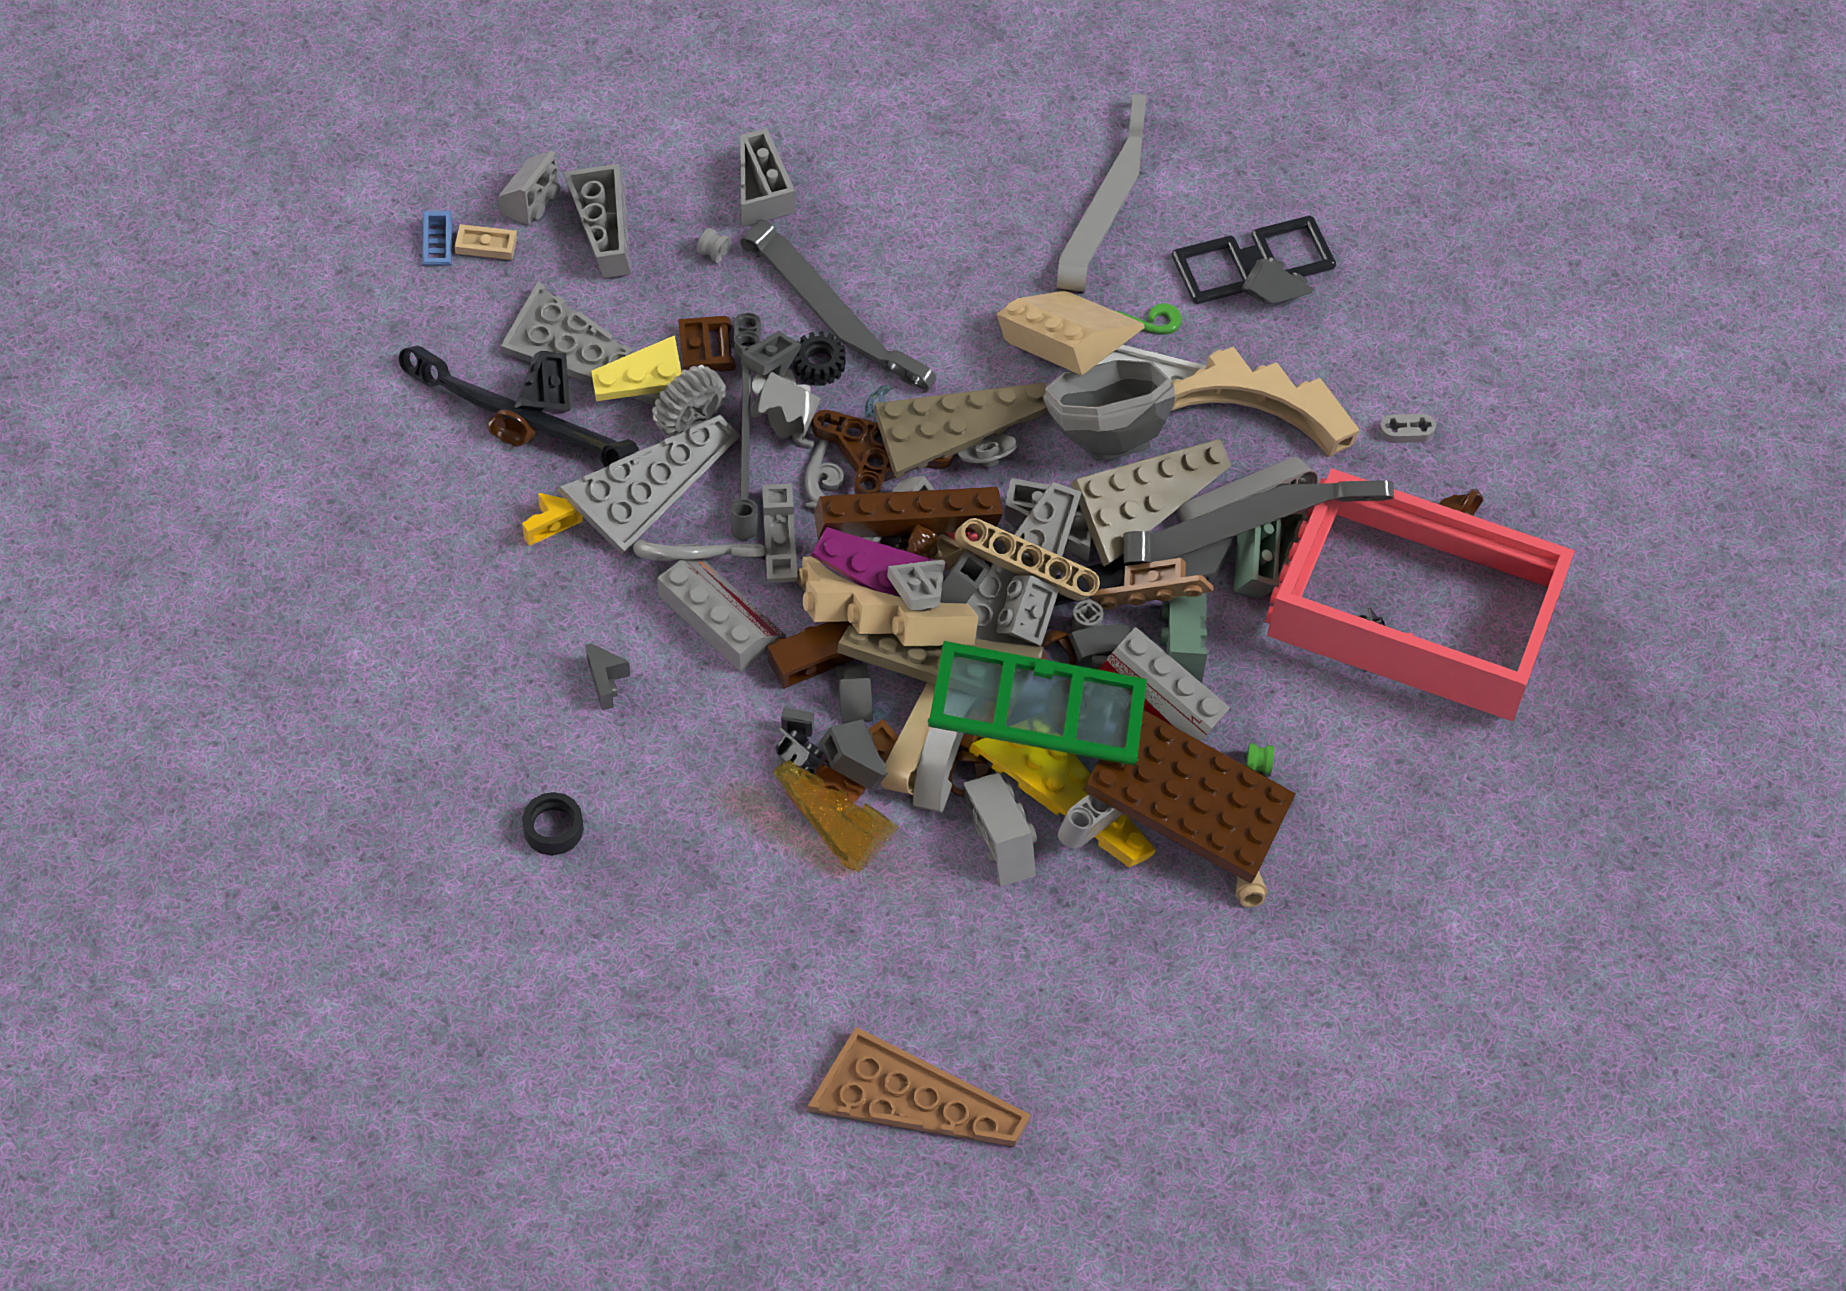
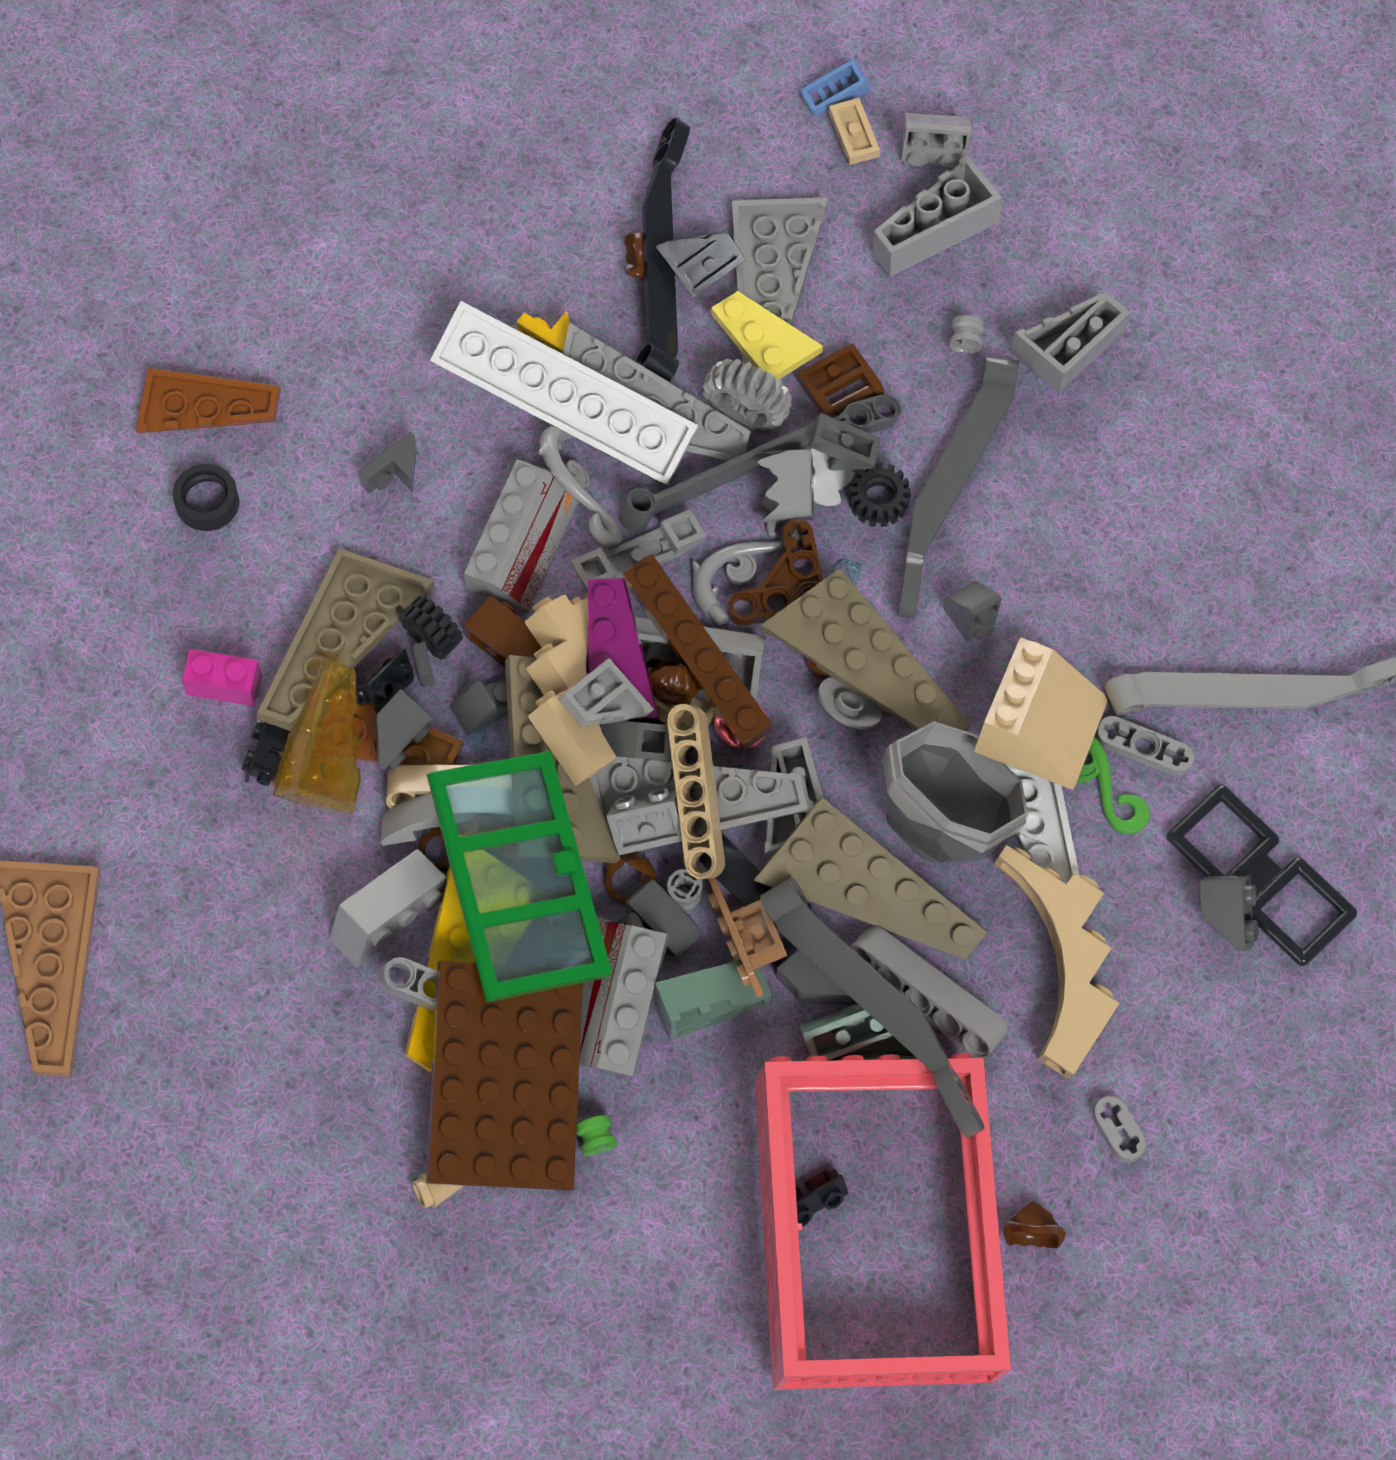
camera: 65 degrees right, 10 degrees up
(455, 798) = (198, 401): none -> dark orange wing
(614, 522) = (564, 393): none -> white plate
(731, 870) = (222, 677): none -> dark pink brick
(732, 763) = (344, 622): none -> dark tan wing
(768, 698) = (432, 626): none -> black tyre
(800, 858) = (262, 762): none -> black hinge
(955, 334) = (973, 610): none -> dark grey slope
(1120, 274) = (1157, 739): none -> light grey beam

